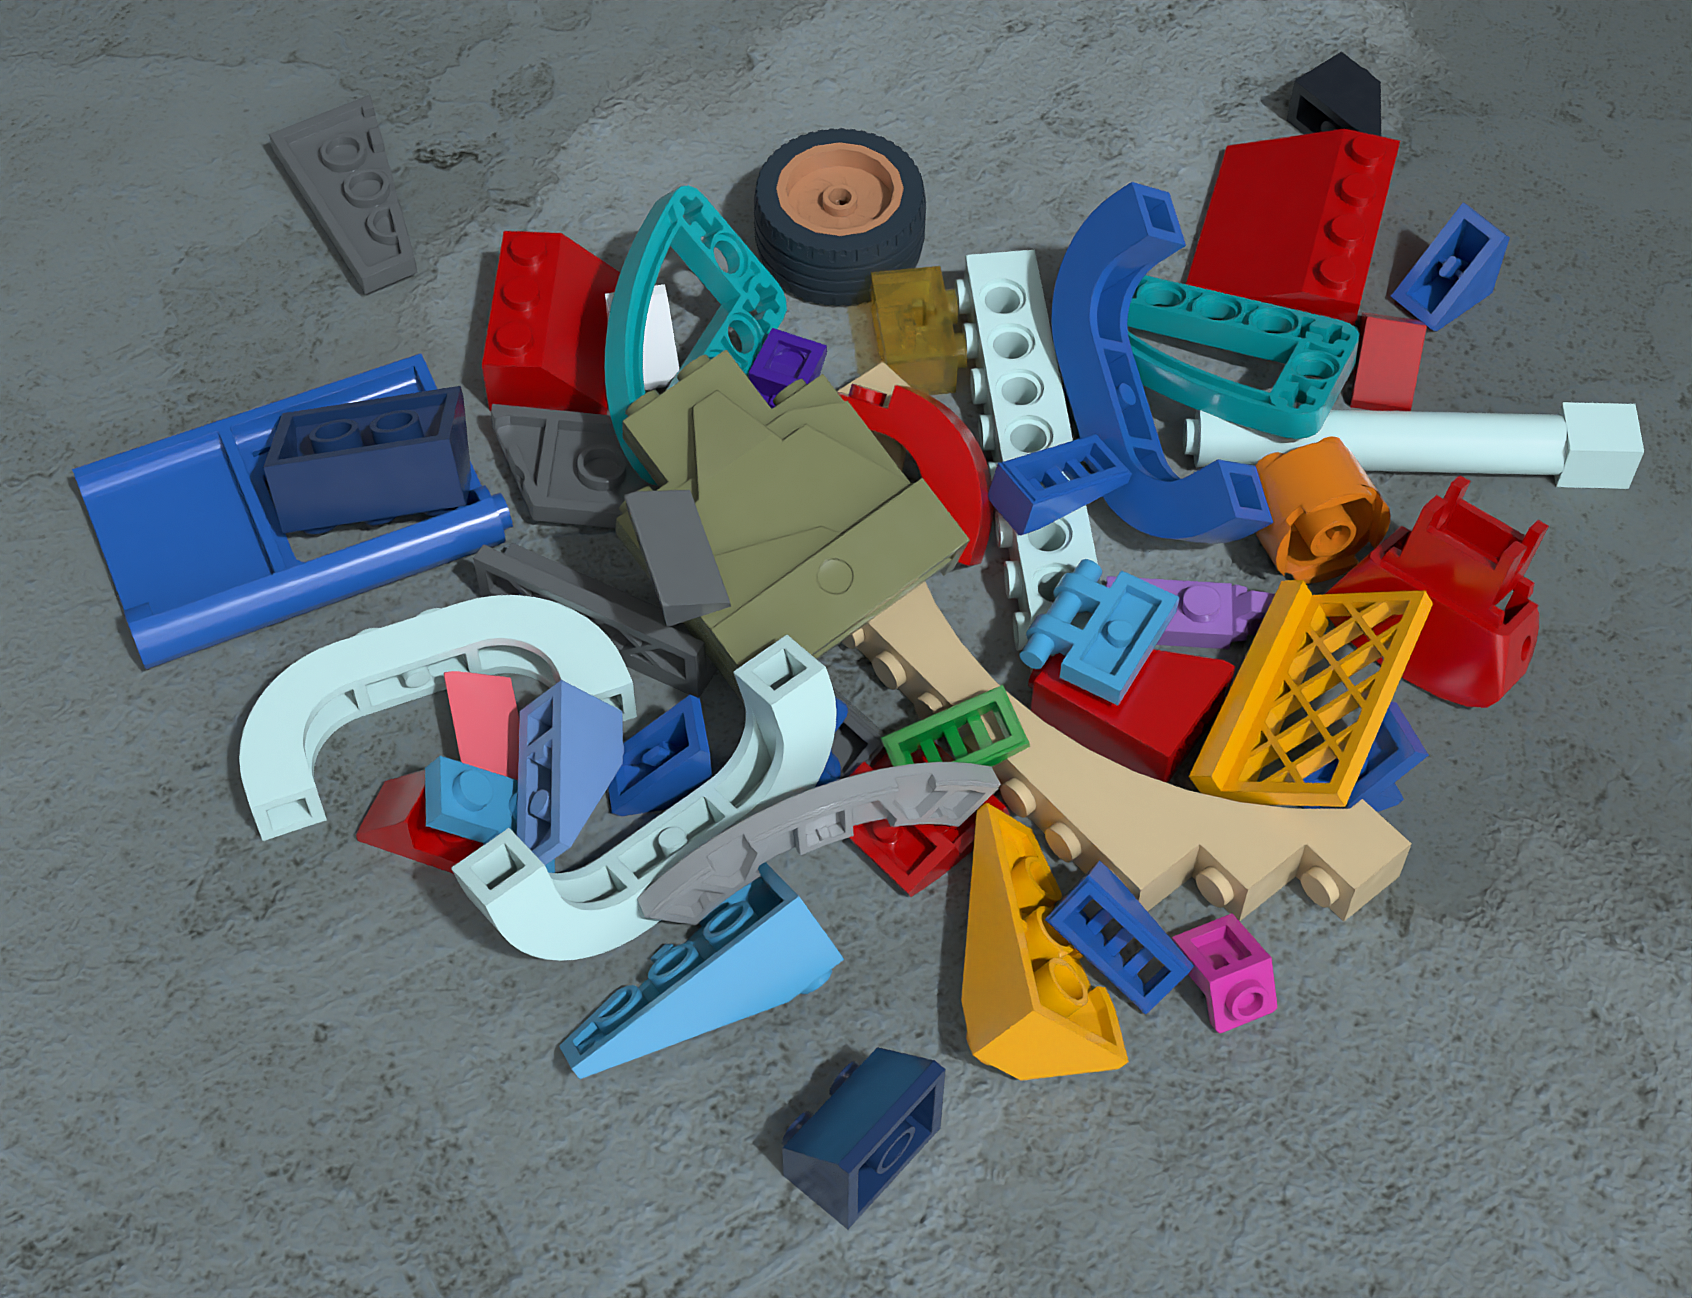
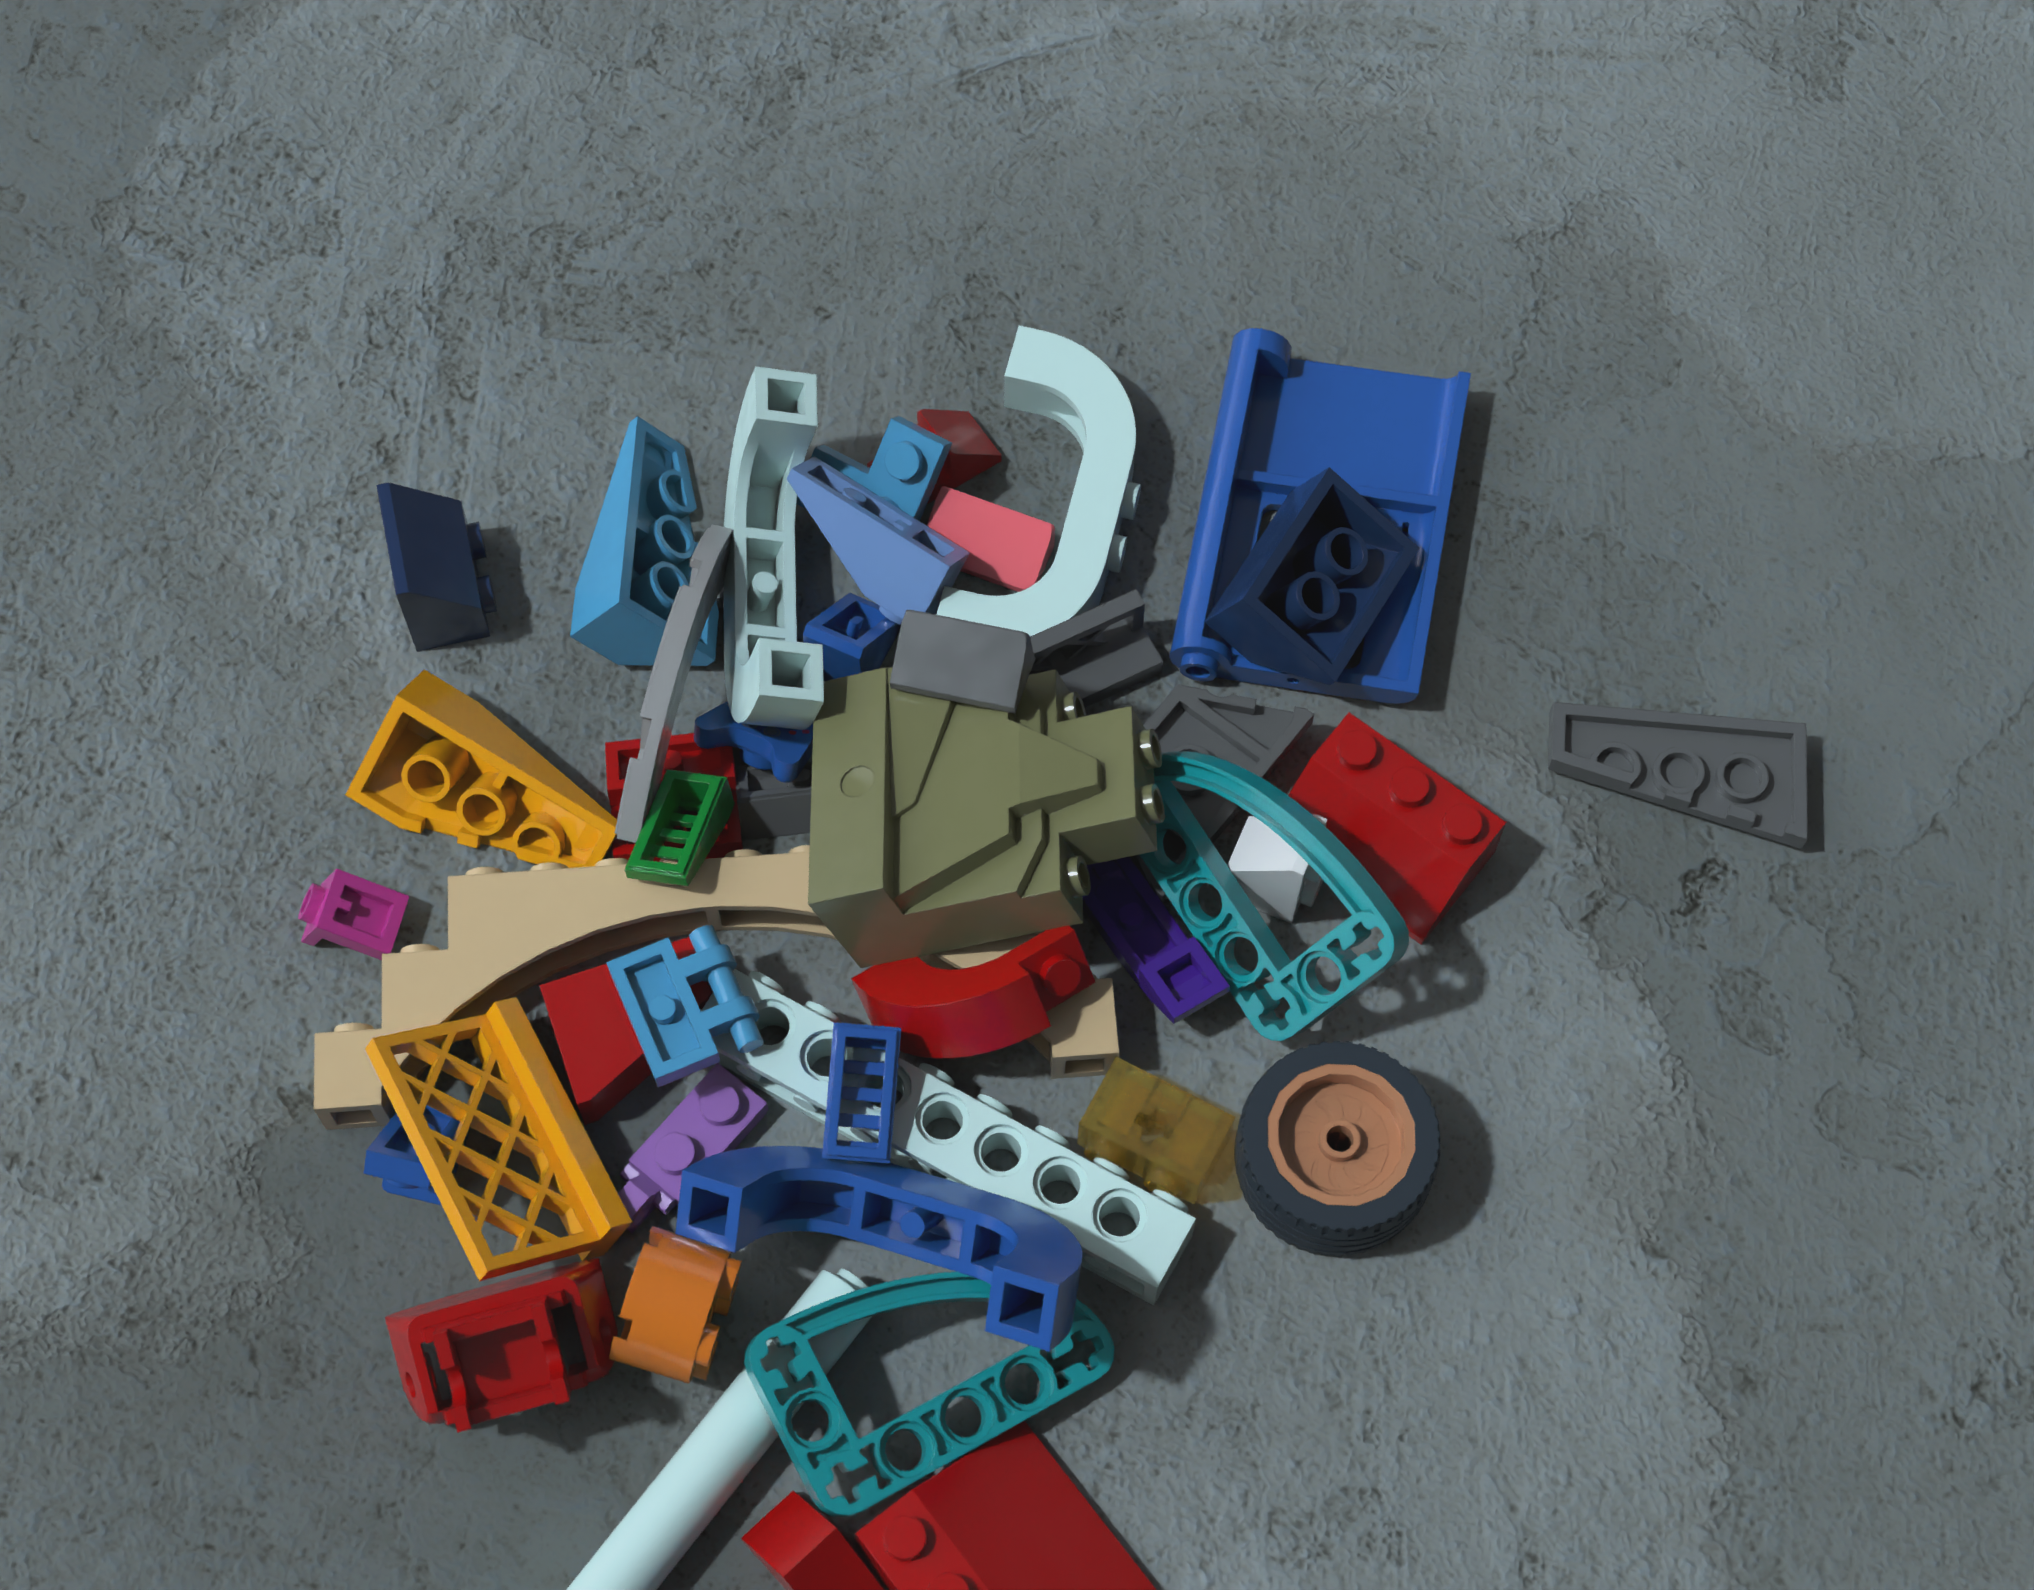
camera: 125 degrees right, 10 degrees up
(1088, 939) = (449, 845): blue slope -> none

